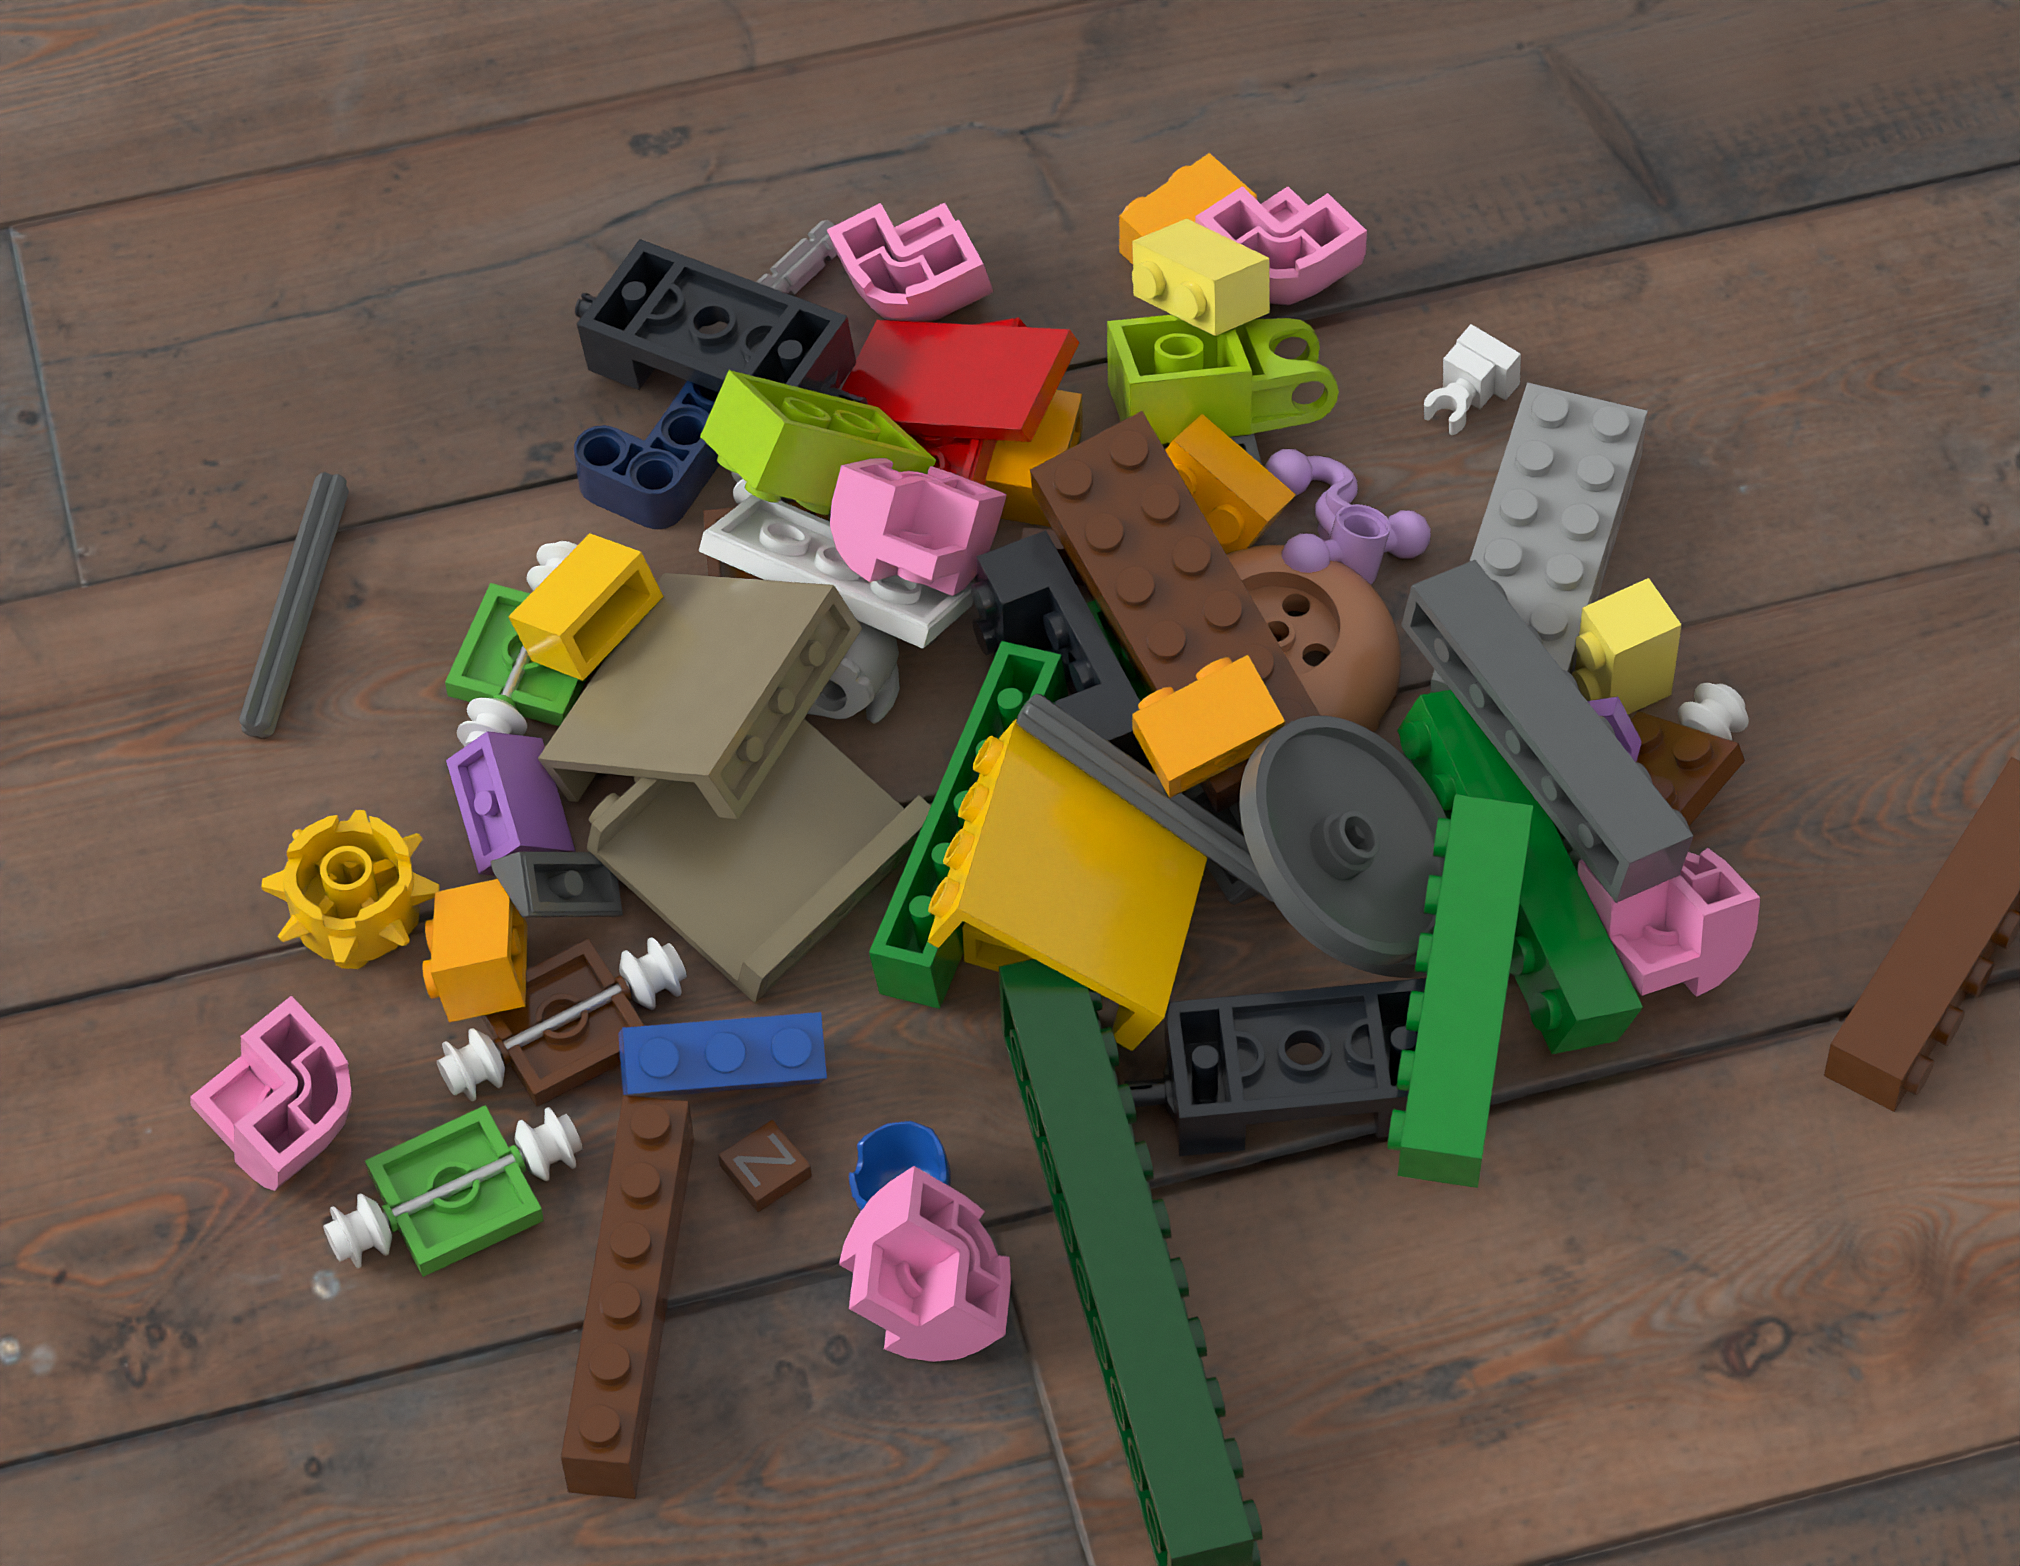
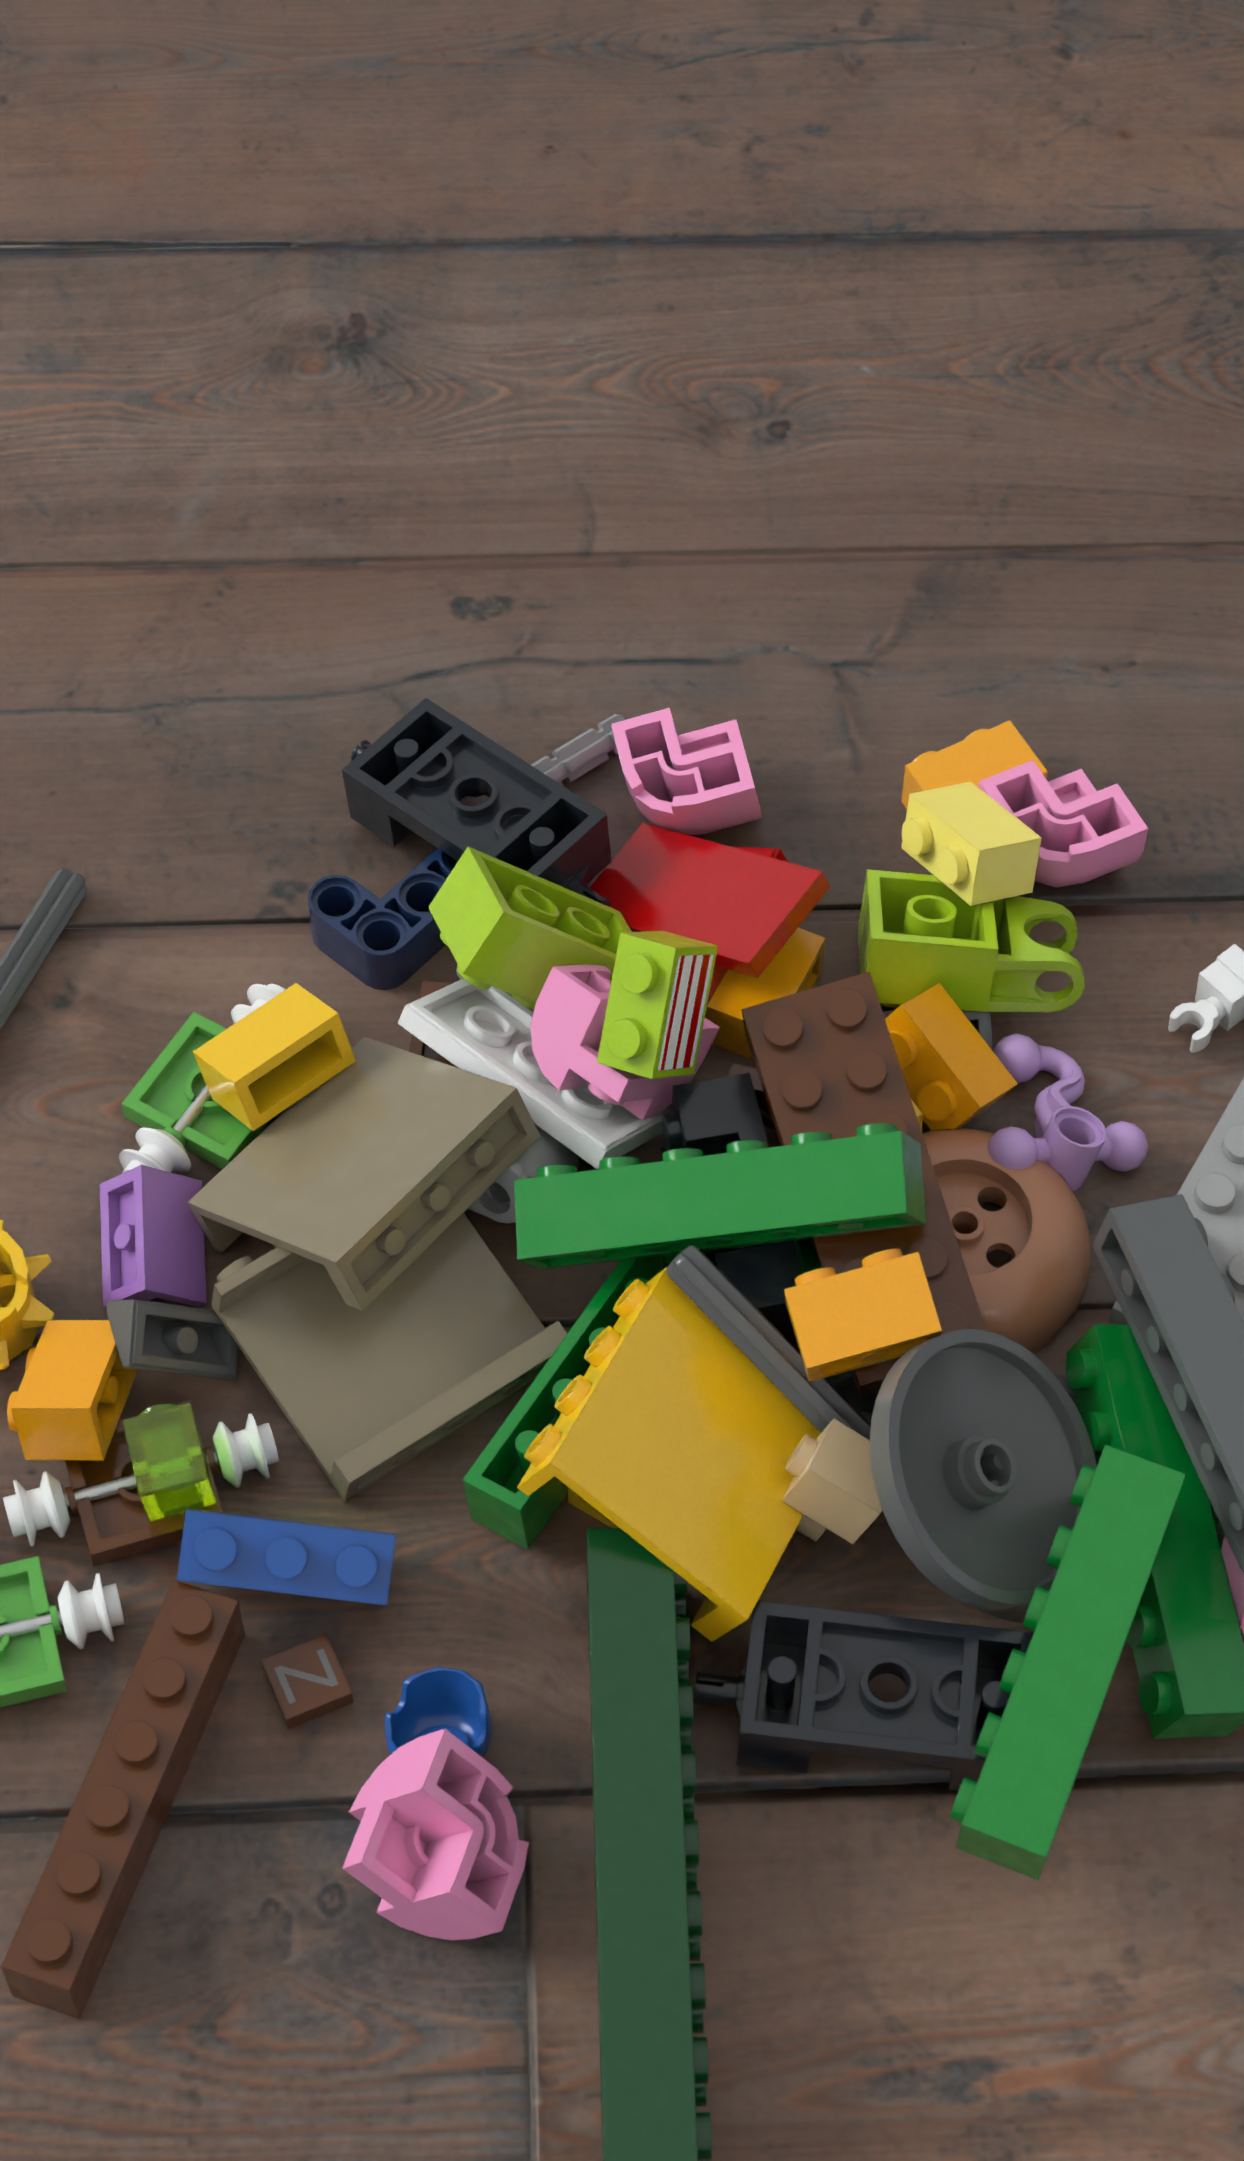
camera: 10 degrees right, 0 degrees up
(589, 992) = (169, 1460): none -> clear neon green brick
(949, 480) = (657, 1004): none -> lime brick
(1049, 648) = (720, 1199): none -> green brick
(1214, 884) = (833, 1483): none -> tan brick

